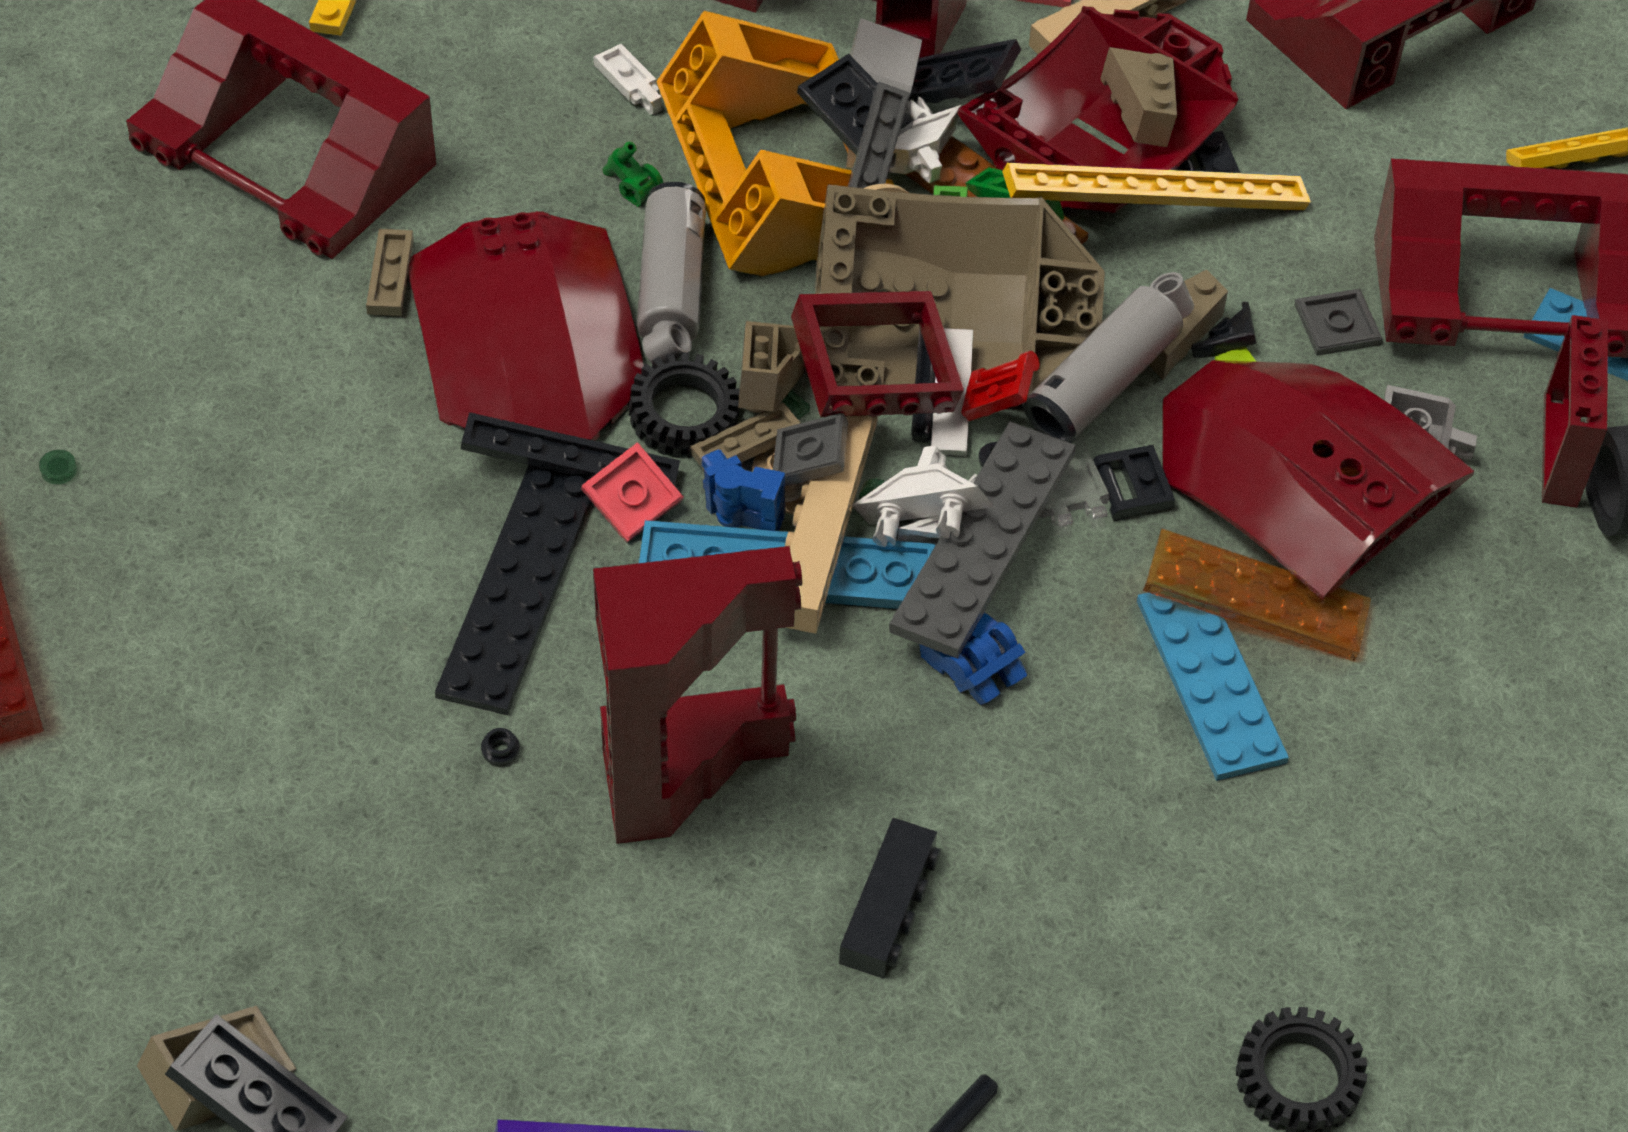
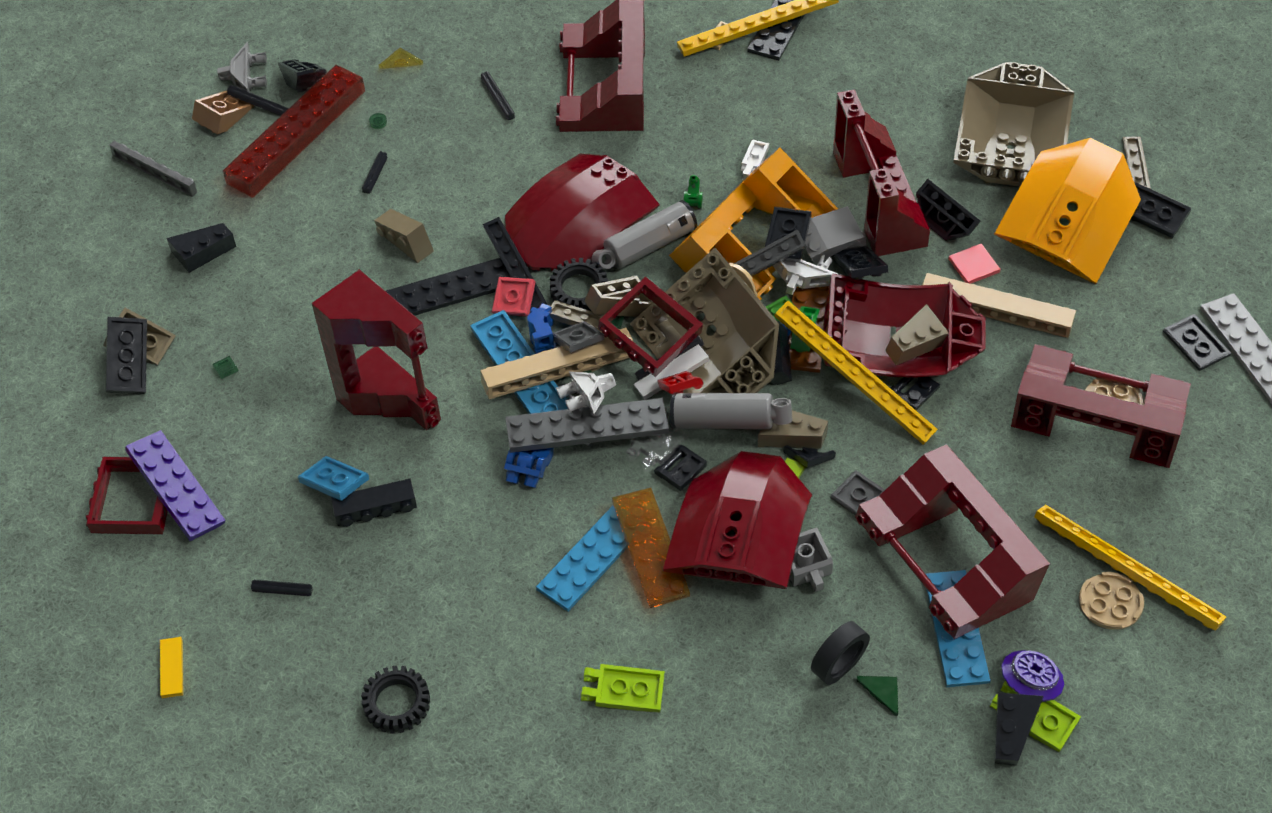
camera: 60 degrees right, 0 degrees up
(91, 861) = (201, 246): none -> black wedge
(170, 532) = (374, 172): none -> black axle
(174, 288) = (497, 95): none -> black axle
(359, 558) = (405, 234): none -> dark tan wedge
(390, 272) = (566, 151): dark tan plate -> none
(400, 967) = (225, 367): none -> clear green tile
(796, 925) = (333, 478): none -> dark azure tile
(1480, 767) = (624, 688): none -> lime tile
(1582, 387) = (864, 593): dark red window -> none

